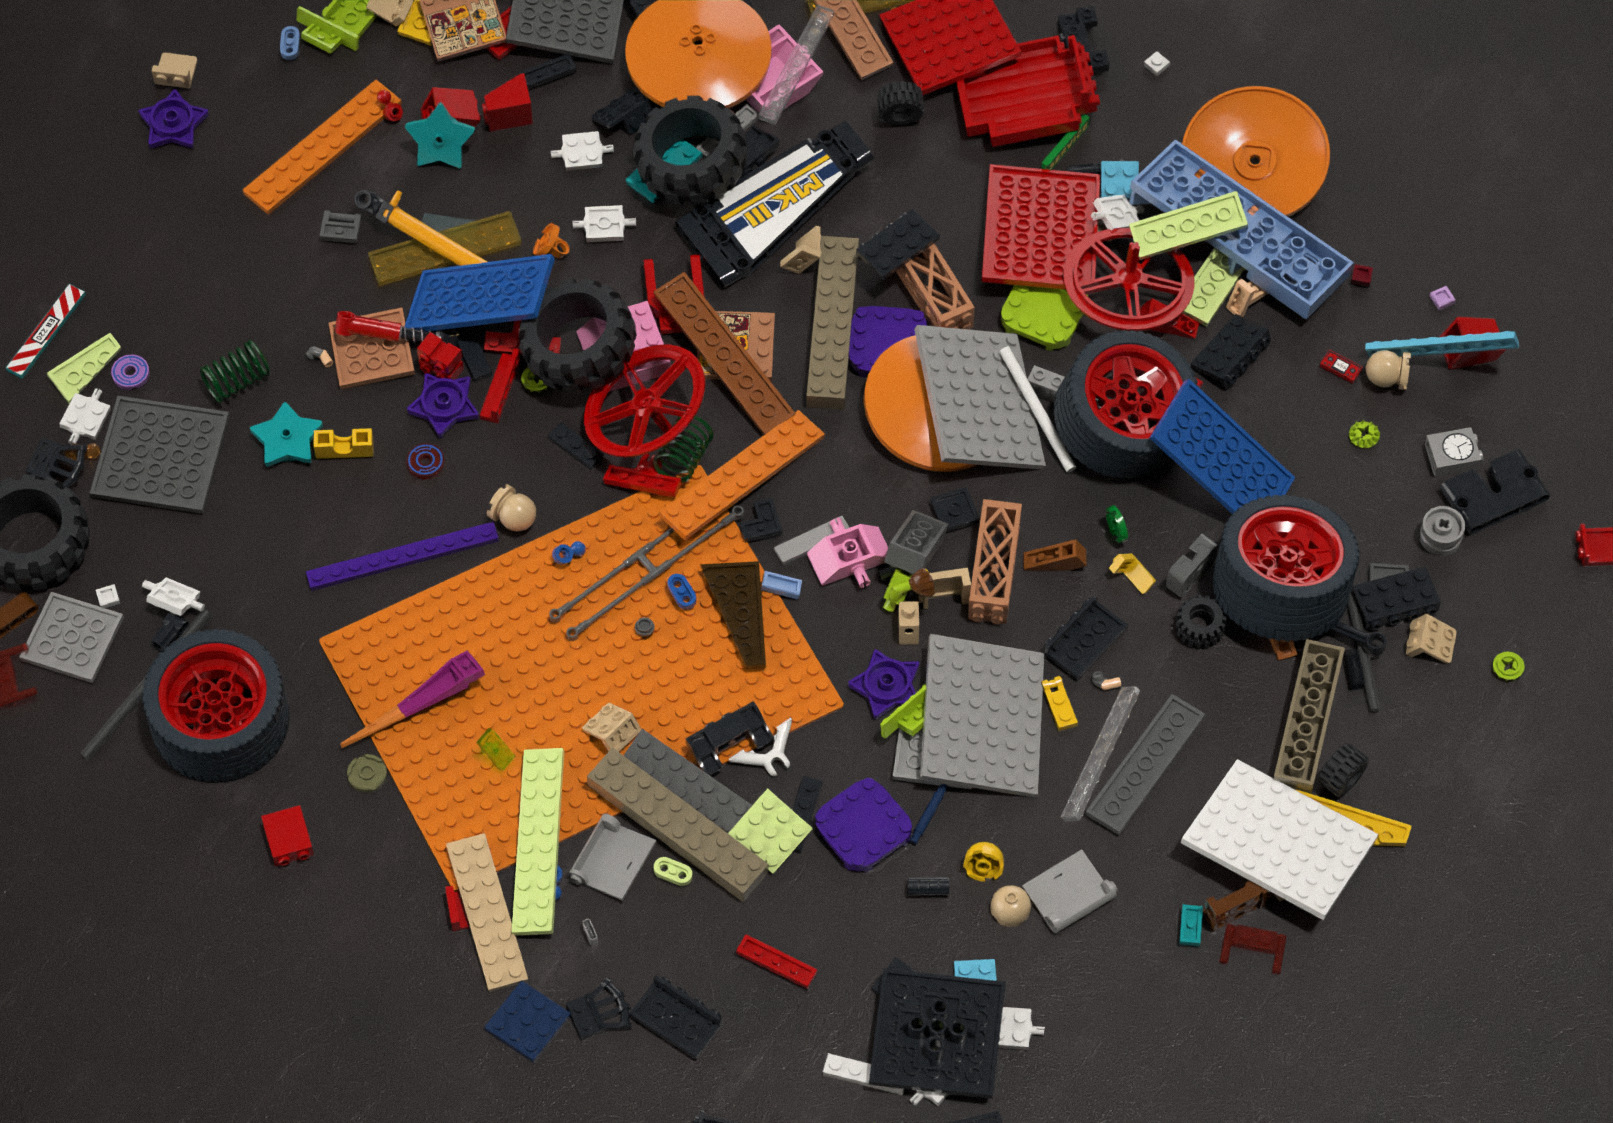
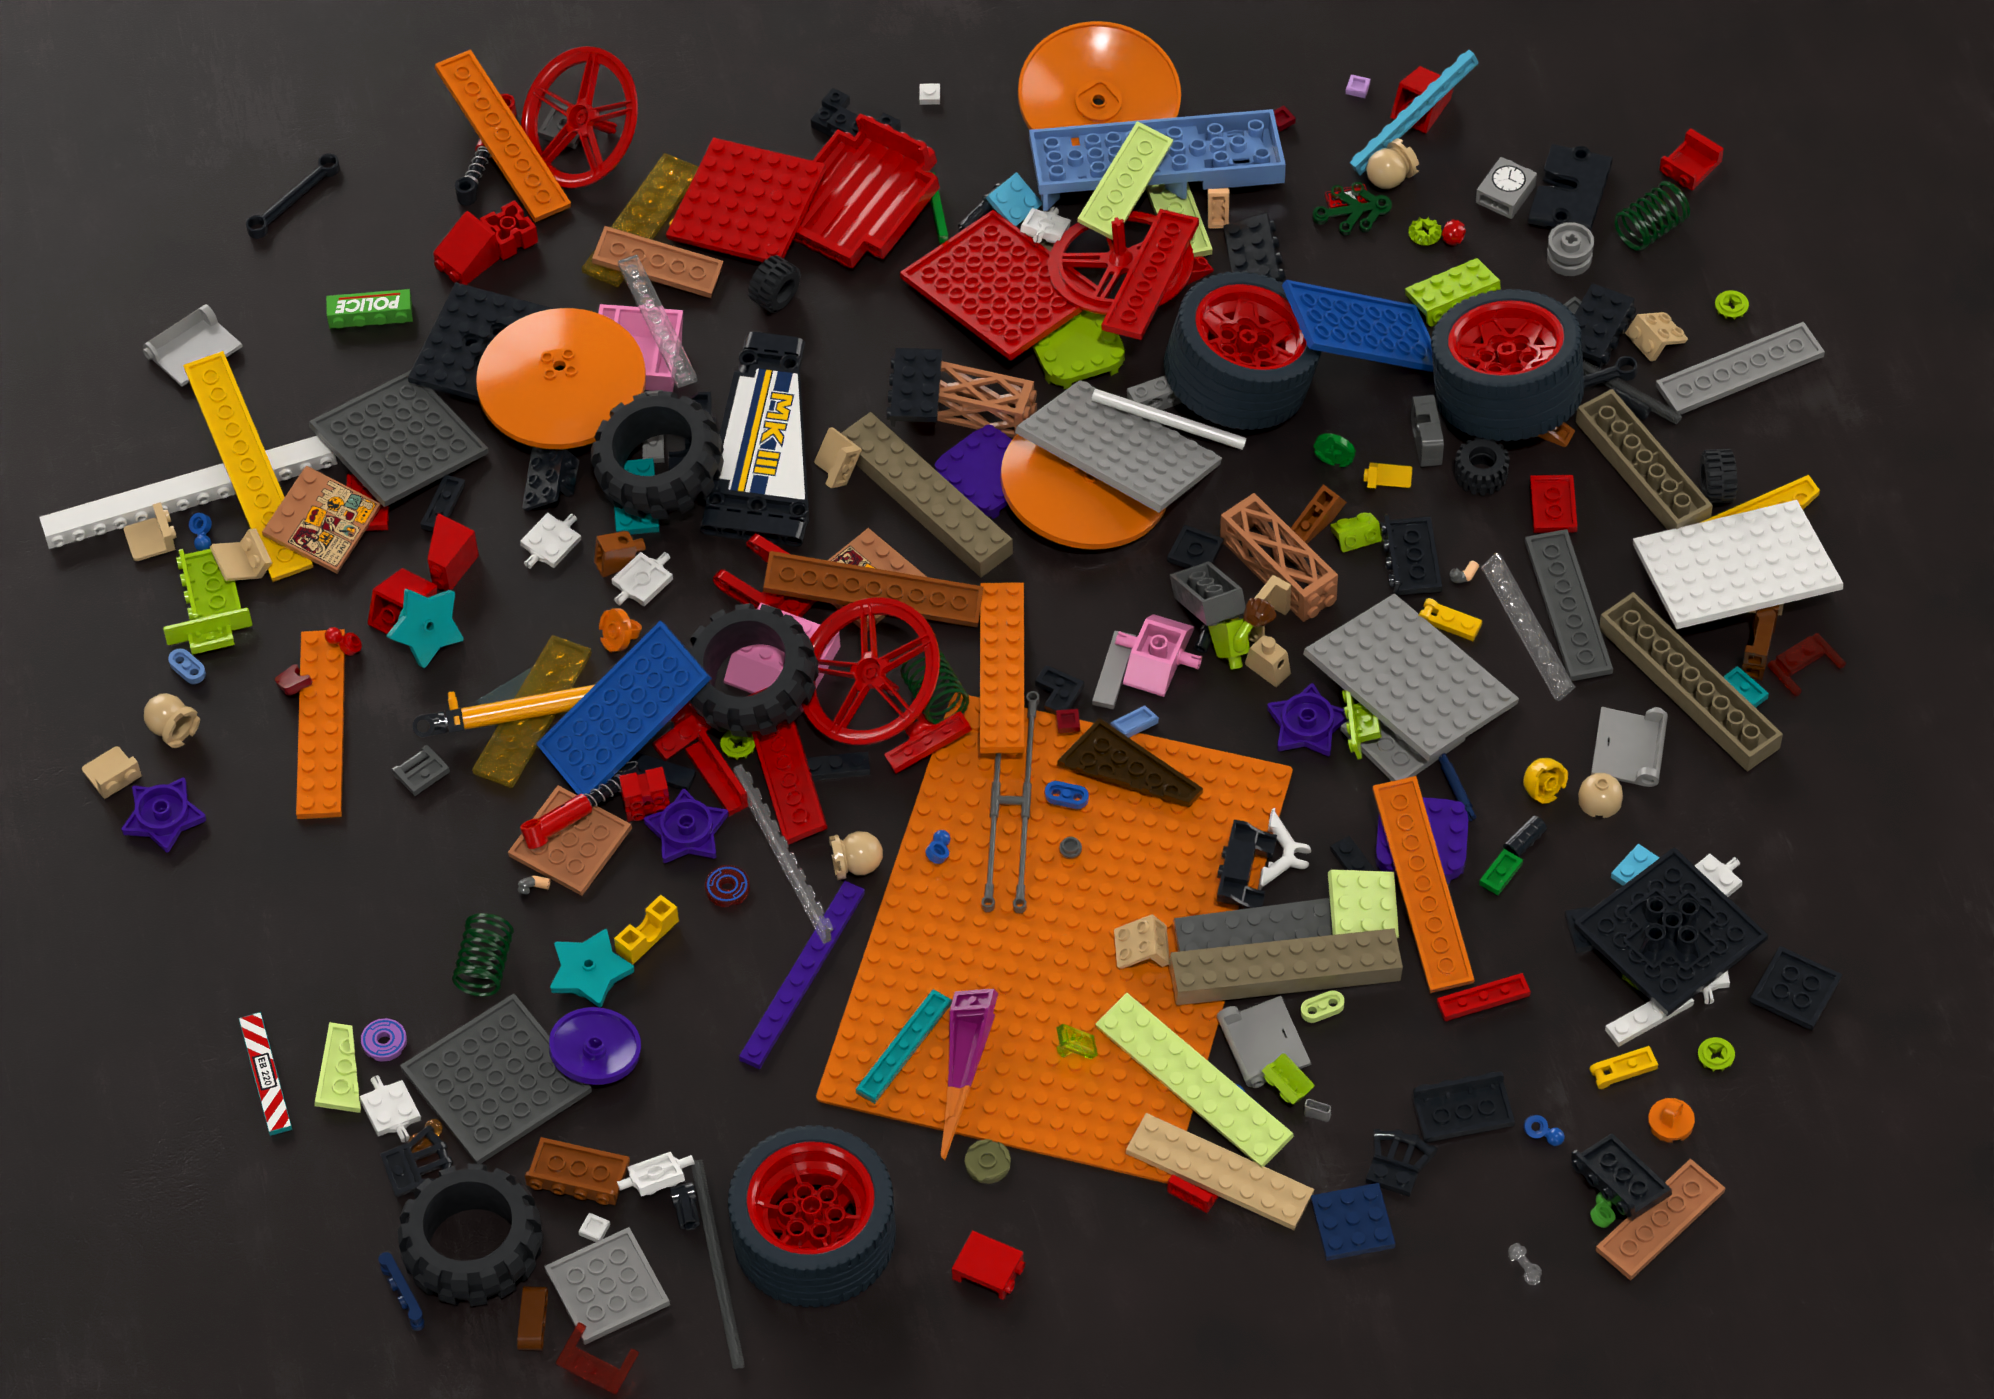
camera: 45 degrees left, 5 degrees down
(136, 552) = (577, 1171): none -> dark orange bracket
(231, 486) = (594, 1045): none -> dark purple dish
(238, 67) = (171, 719): none -> tan tile
(333, 103) = (291, 682): none -> dark red piece
(401, 655) = (903, 1046): none -> teal tile
(472, 474) = (787, 860): none -> clear plate
(533, 431) = (790, 782): none -> red plate
(591, 895) = (1288, 1079): none -> lime bracket
(606, 191) = (616, 551): none -> dark orange torso
(711, 1090) = (1553, 1136): none -> blue plate
(739, 545) = (1068, 721): none -> dark red plate
(807, 1090) = (1624, 1067): none -> yellow plate
(820, 853) = (1423, 884): none -> orange plate
(886, 894) = (1501, 872): none -> green plate
(1070, 590) = (1357, 531): none -> lime bracket
(1128, 301) = (1150, 274): none -> red plate
(1156, 887) = (1690, 681): none -> dark tan brick
(1219, 689) = (1553, 503): none -> red plate
(1334, 378) = (1355, 208): none -> dark green plant
(1334, 489) = (1448, 288): none -> lime bracket
(1379, 451) = (1453, 232): none -> red piece
(1458, 714) = (1740, 368): none -> light grey plate
(1549, 571) = (1645, 234): none -> dark green piece

